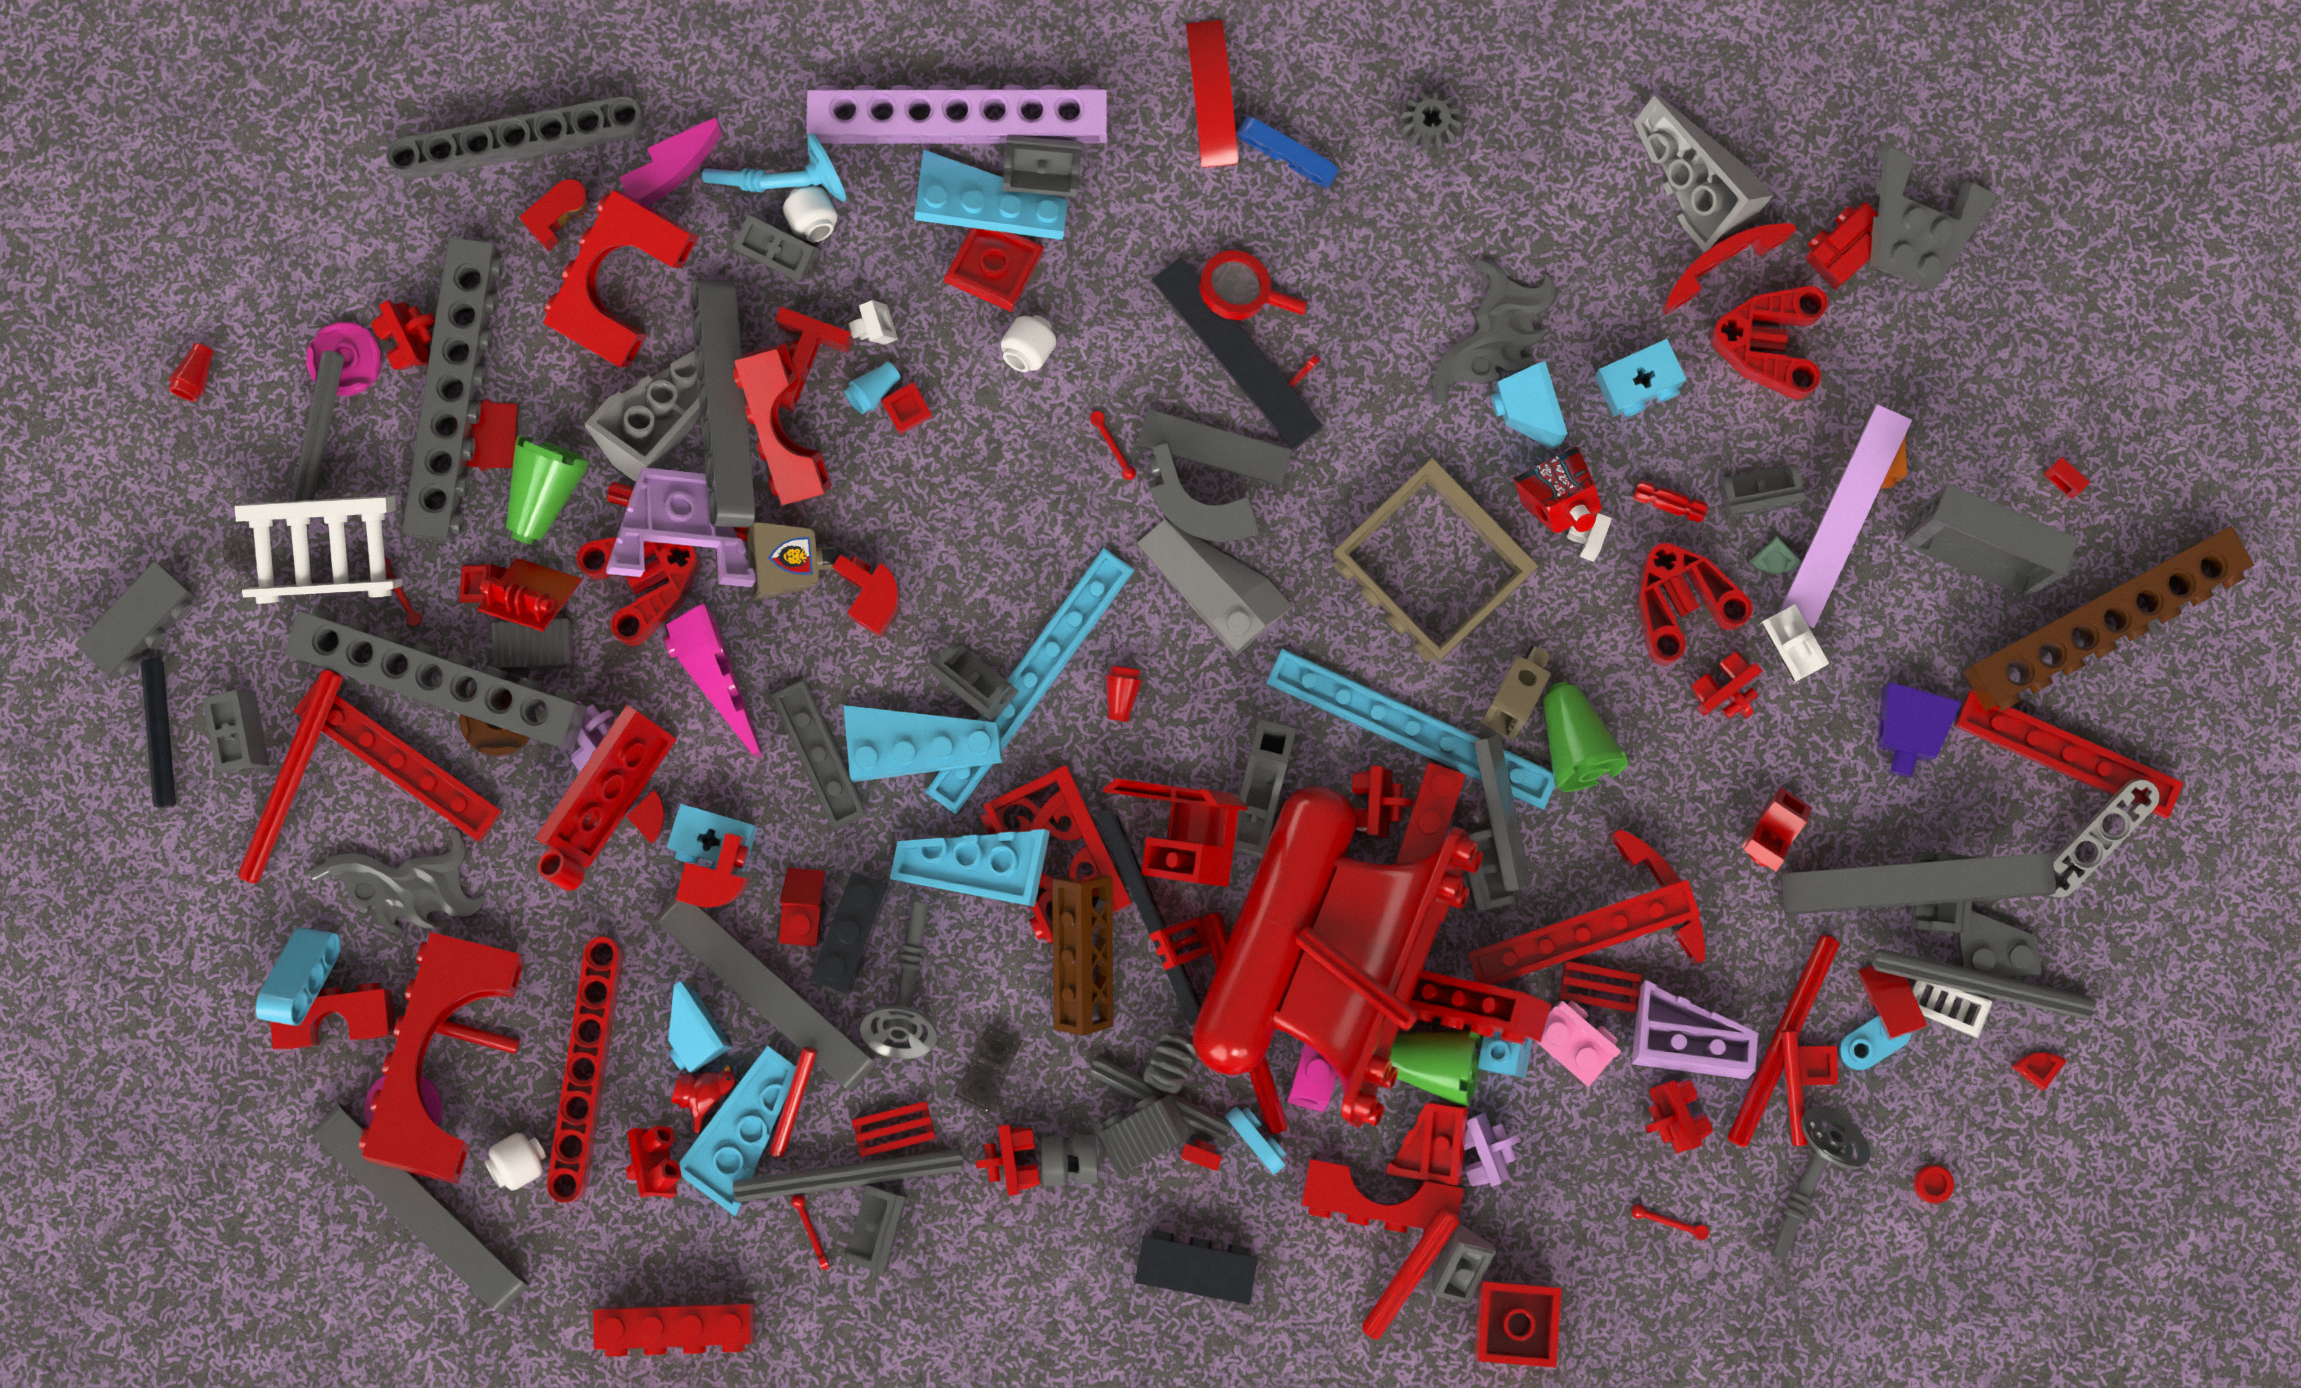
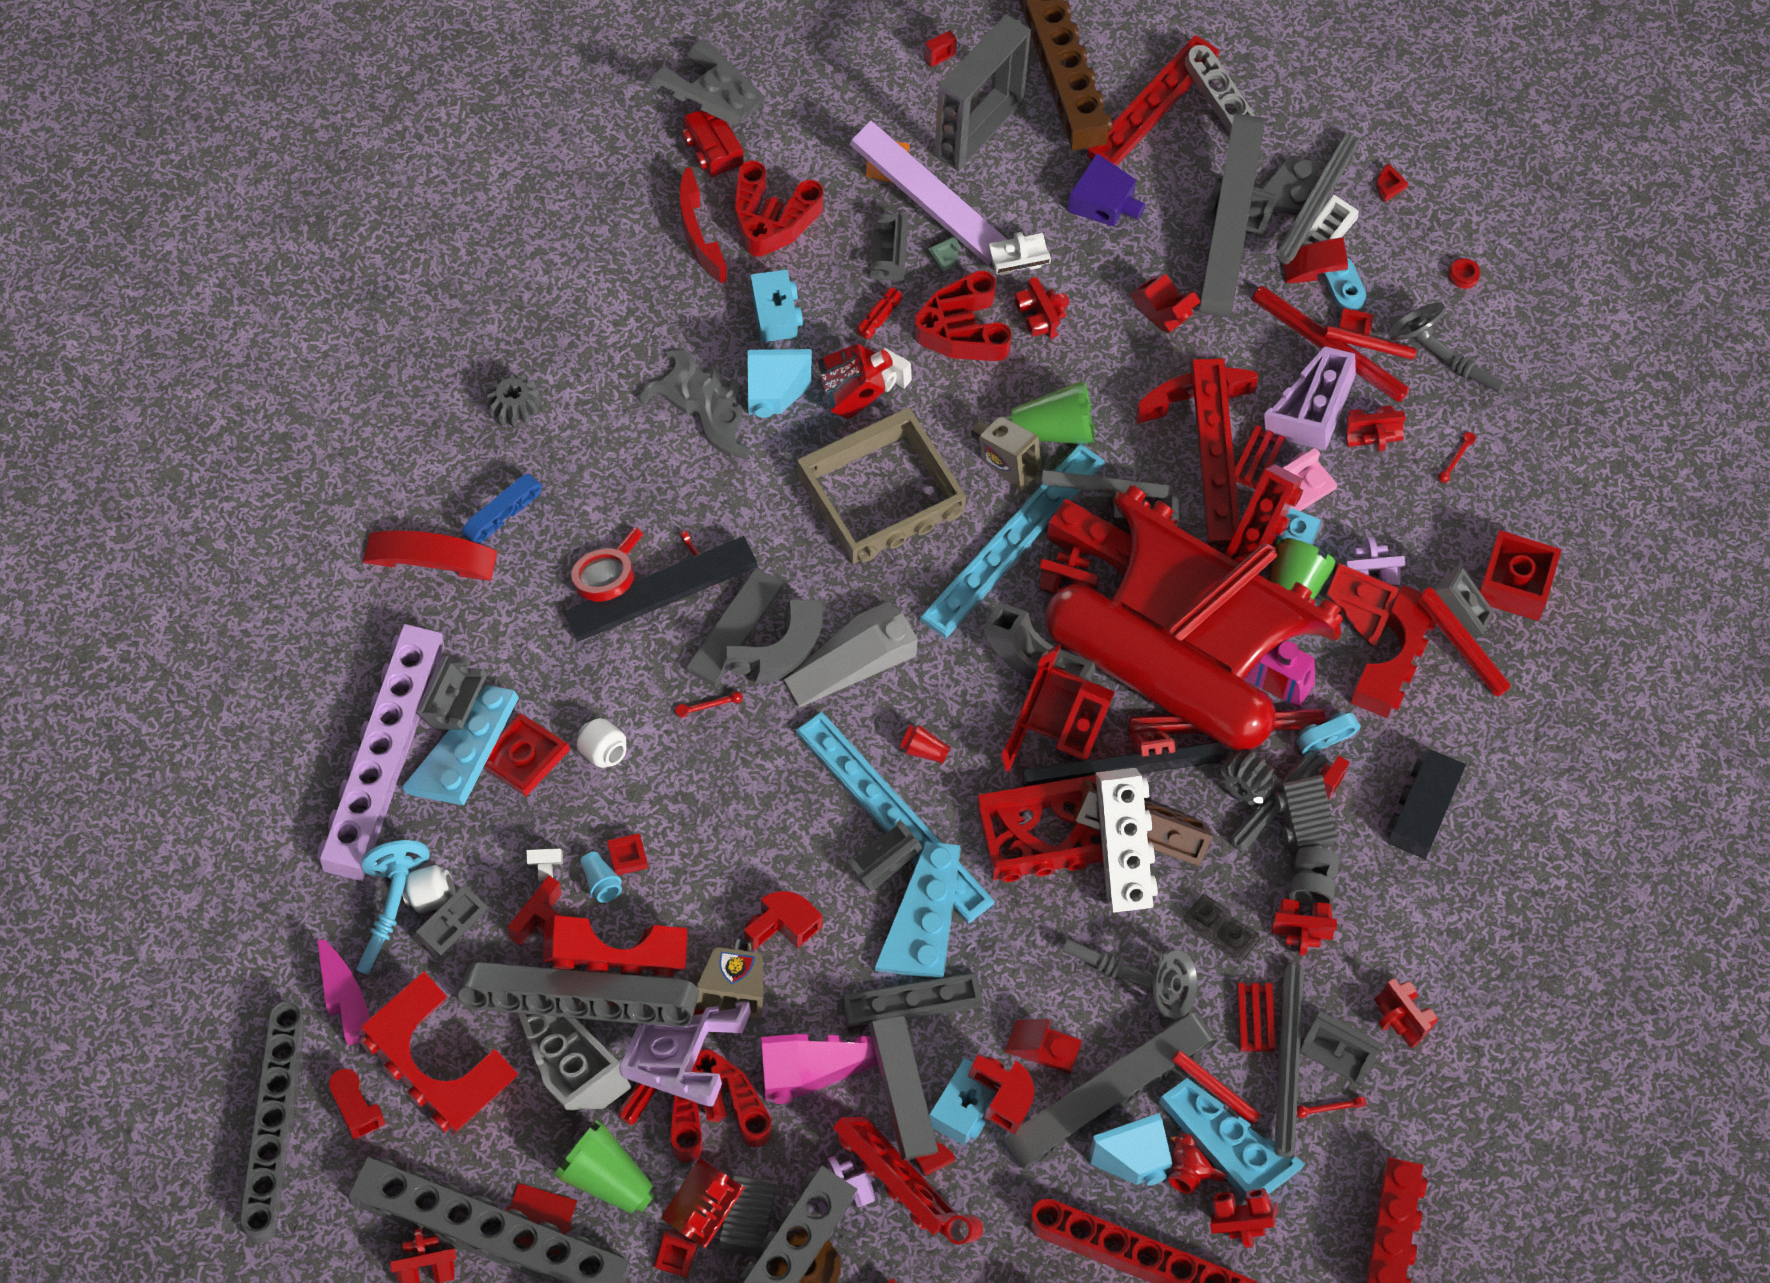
camera: 80 degrees left, 20 degrees down
(701, 768) = (903, 1088): none -> dark grey tile
(850, 933) = (1078, 1005): black brick -> none
(931, 1286) = (1401, 1013): none -> red hips
(986, 866) = (1048, 879): medium azure wing -> none
(1042, 937) = (1125, 840): none -> white brick
(1709, 182) = (626, 223): light grey wedge -> none

